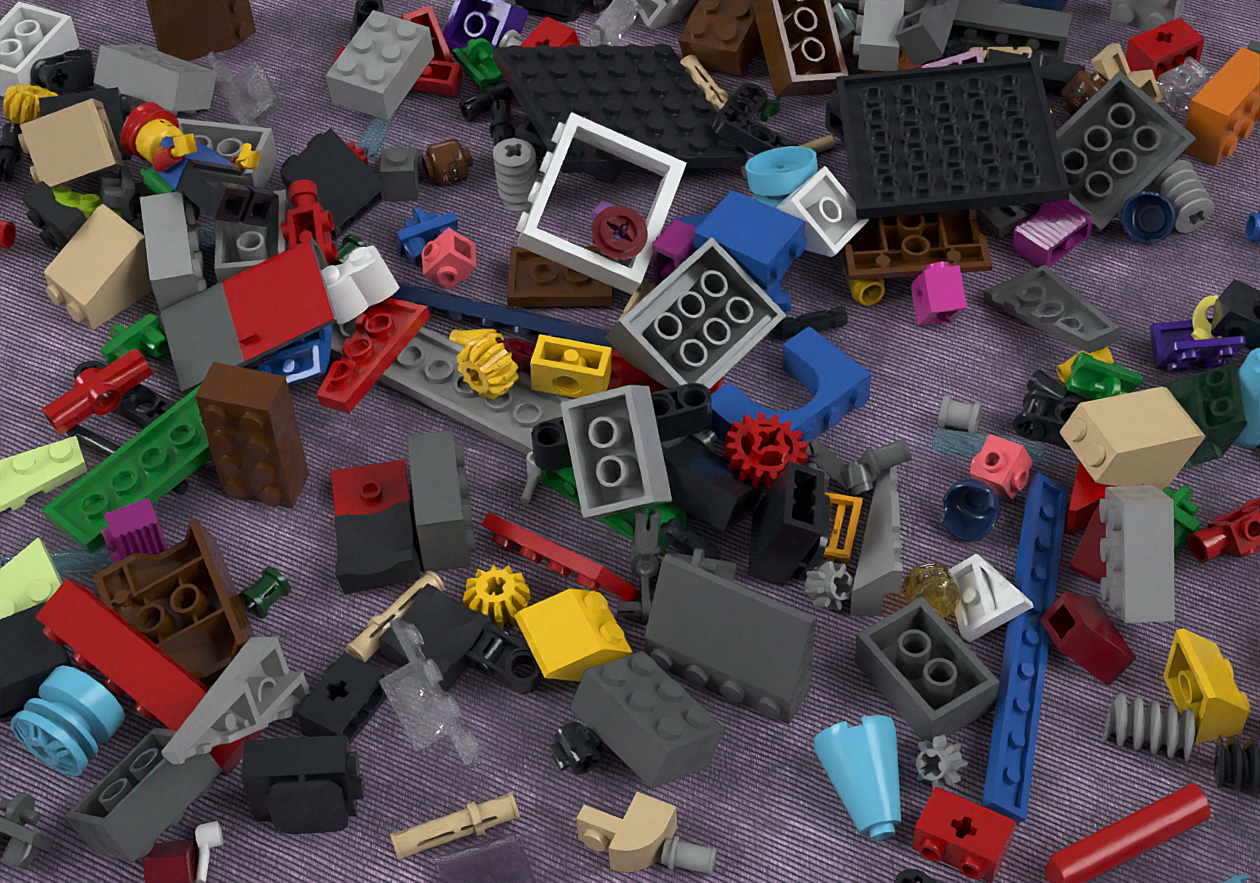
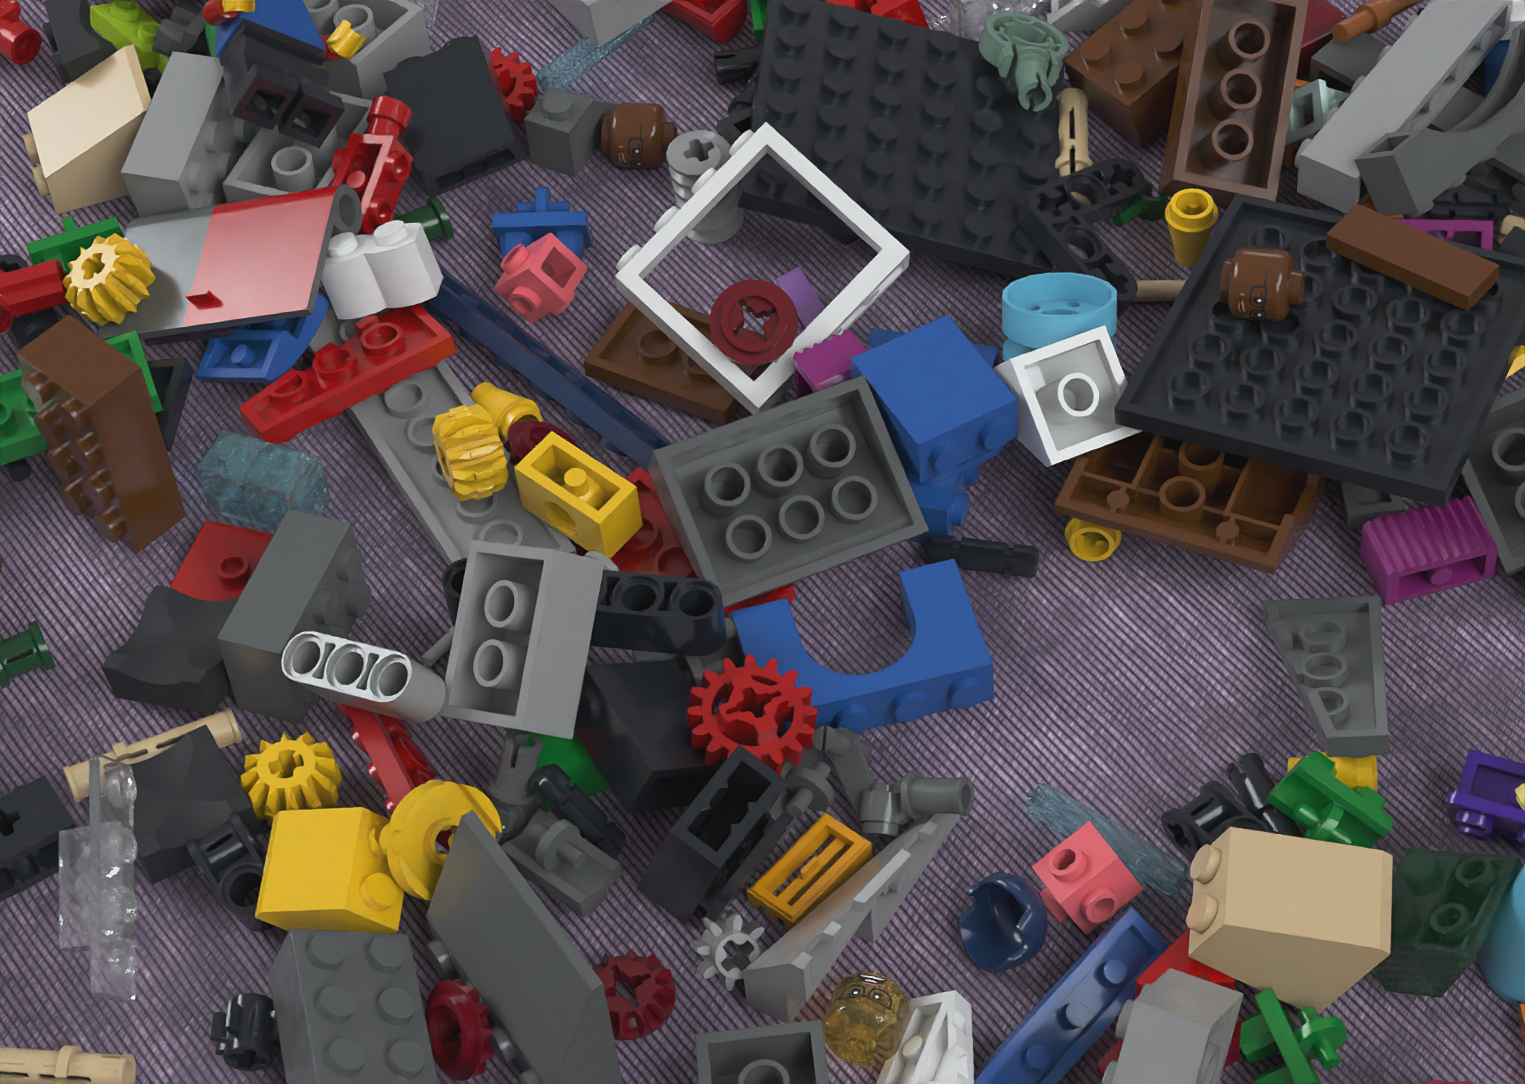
camera: 30 degrees right, 0 degrees up
(176, 350) = (108, 280): none -> yellow gear
(356, 435) = (261, 480): none -> clear light blue brick
(508, 506) = (363, 676): none -> light grey beam
(628, 587) = (415, 825): none -> yellow plate
(659, 43) = (1029, 51): none -> sand green pin
(721, 698) = (457, 1011): none -> dark red gear
(809, 105) = (1191, 222): none -> yellow cone
(895, 116) = (1261, 284): none -> reddish brown head
(938, 294) = (1166, 581): dark pink brick -> none
(959, 414) = (1093, 775): light grey bush -> none
(962, 76) = (1412, 257): none -> reddish brown tile

